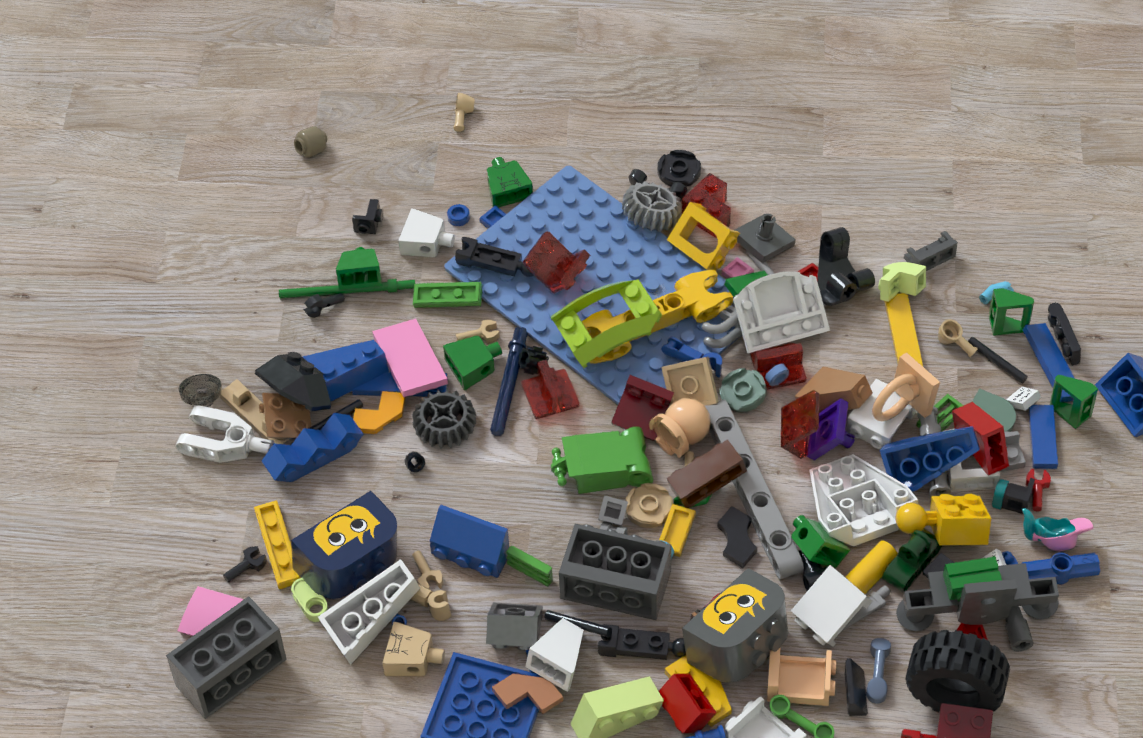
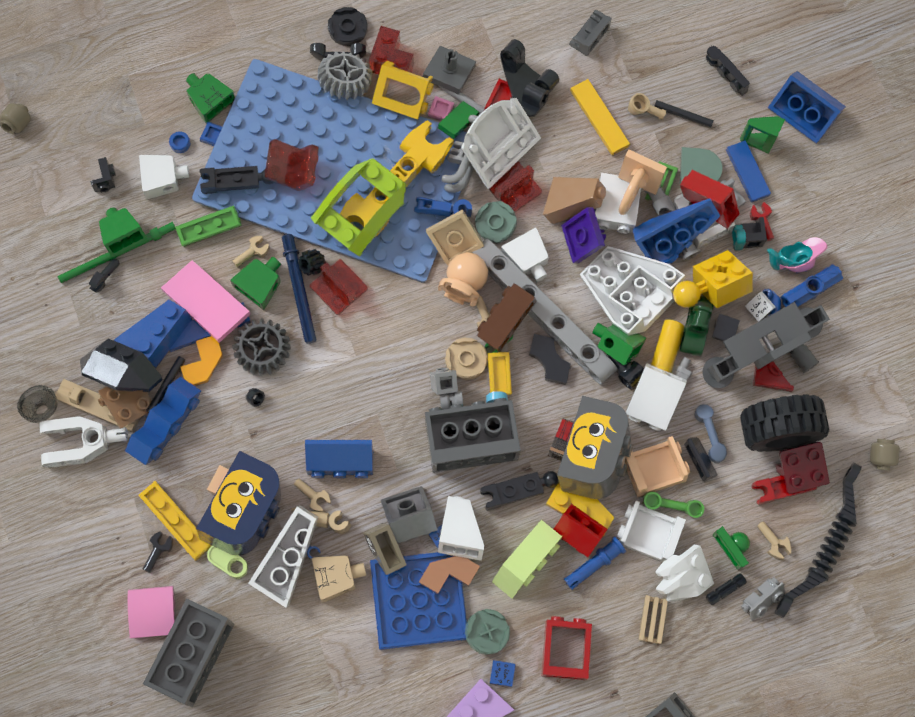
camera: 30 degrees left, 20 degrees up
(464, 105) = (133, 31): tan bar -> none
(472, 641) = (384, 548): none -> dark tan slope
(529, 565) = (396, 456): bright green tile -> none
(583, 624) = (469, 494): black bar -> none
(603, 460) = (413, 335): bright green piece -> none
(640, 404) = (423, 274): dark red bracket -> none
(761, 429) = (528, 254): none -> white torso
(777, 374) = (520, 199): medium blue tile -> none
(798, 422) = (560, 238): clear red bracket -> none
(902, 278) = (579, 67): yellowish green brick -> none
(968, 572) = (763, 335): green brick -> none
(986, 296) = (655, 48): medium azure arm -> none
(1005, 299) = (674, 69): green tile -> none
(1024, 398) = (720, 143): white tile -> none
(1048, 354) = (725, 97): blue tile -> none

